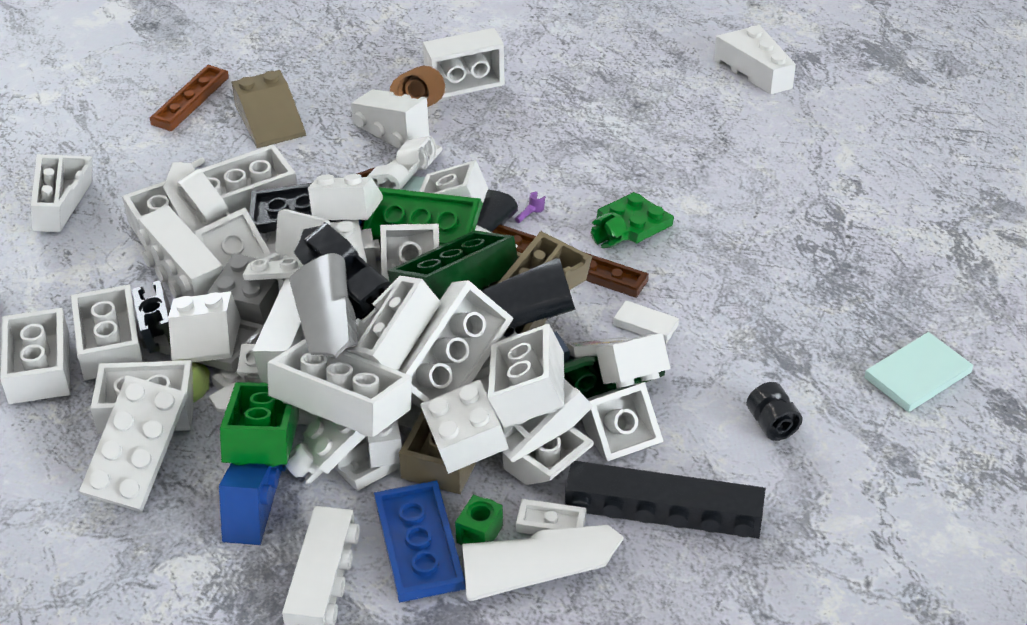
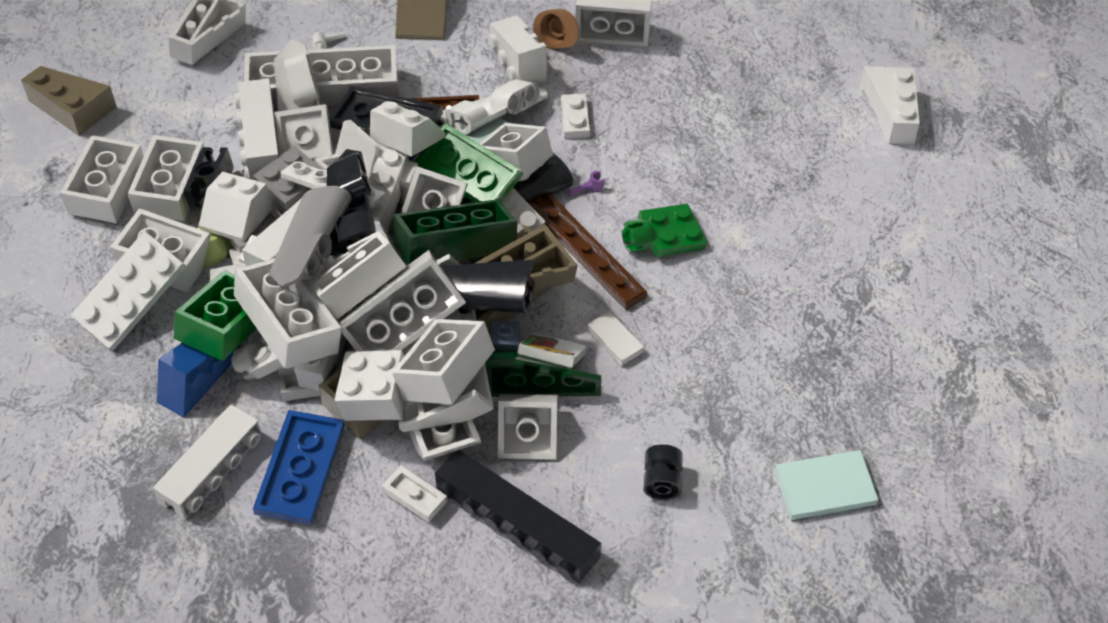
camera: 25 degrees right, 10 degrees up
(475, 149) = (575, 116): none -> white plate
(479, 521) = (354, 483): green brick -> none
(546, 556) = (367, 523): white panel -> none
(632, 359) = (558, 377): white brick -> none

